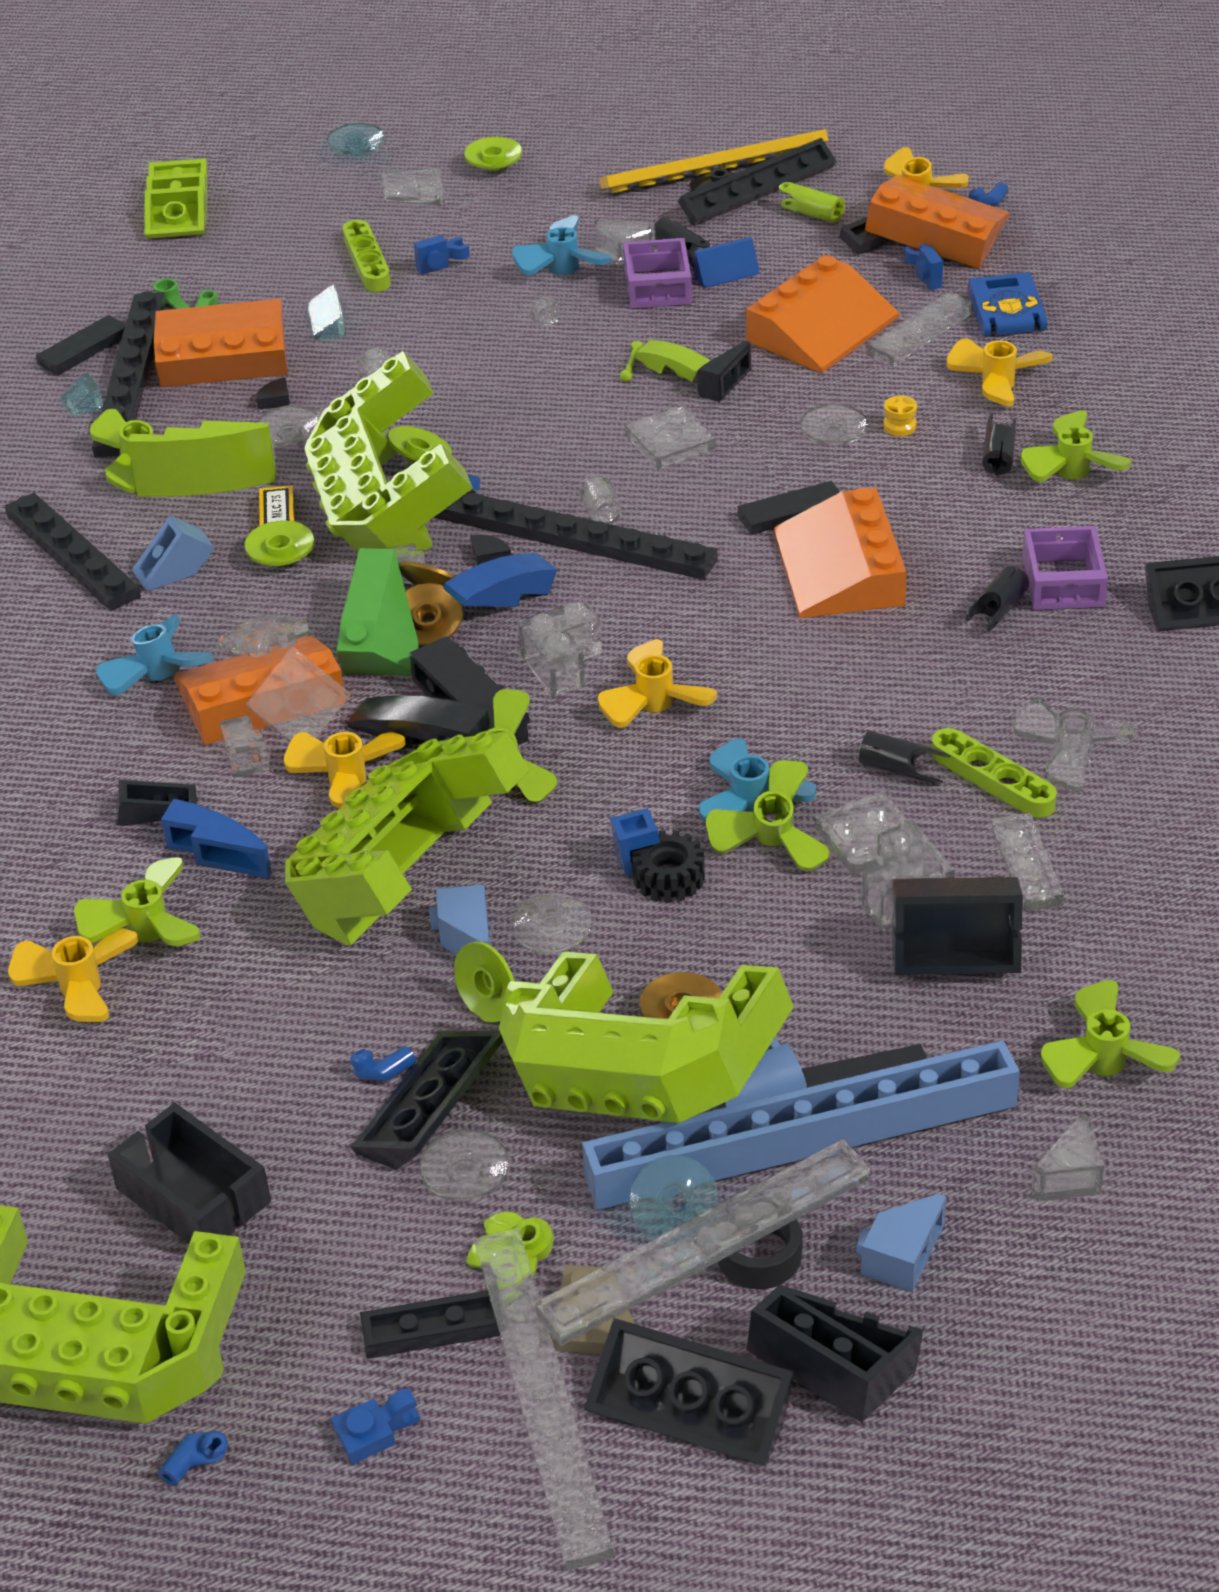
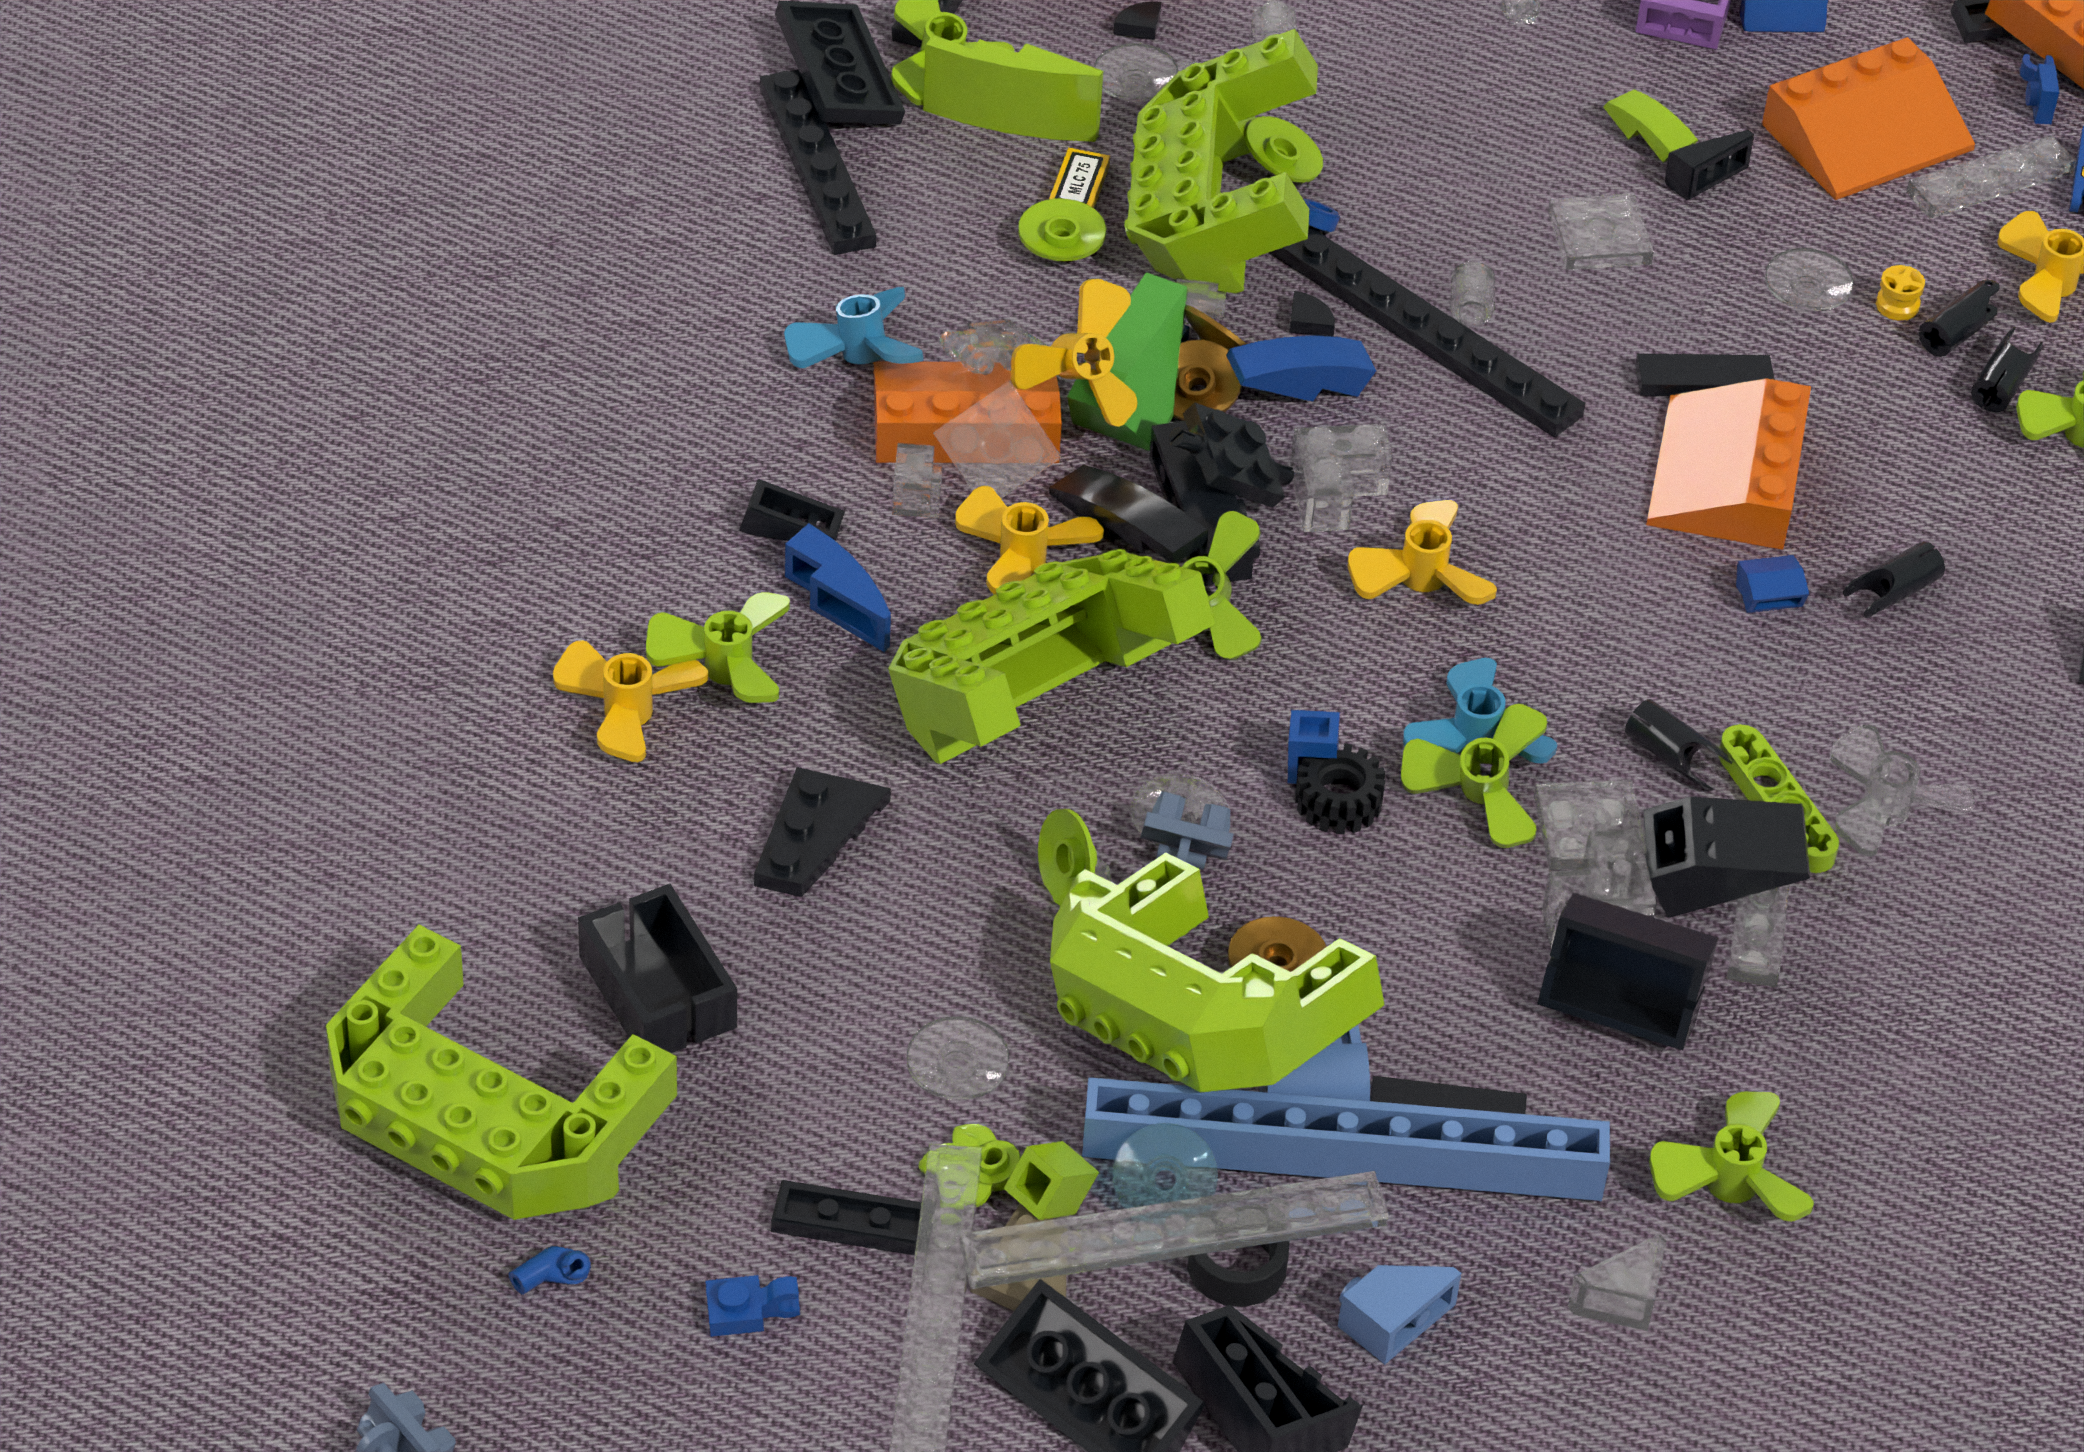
camera: 15 degrees right, 5 degrees up
(63, 479) = (839, 63): none -> black plate
(172, 554) = (931, 205): medium blue slope -> none
(268, 1024) = (813, 826): none -> black wing
(342, 576) = (1098, 312): none -> yellow piece
(381, 1069) = (914, 919): blue arm -> none
(426, 1096) = (950, 966): black slope -> none
(460, 916) = (1077, 774): medium blue slope -> none
(480, 653) = (1232, 455): none -> black plate
(579, 937) = (1167, 828): none -> sand blue hips
(584, 1235) = (1051, 1180): none -> lime brick
(626, 375) = (1586, 127): lime hinge -> none
(912, 628) = (1771, 583): none -> blue piece
(949, 421) = (1959, 319): none -> black piece
(981, 816) = (1722, 850): none -> black slope
(1065, 588) = (1989, 593): medium lavender window -> none

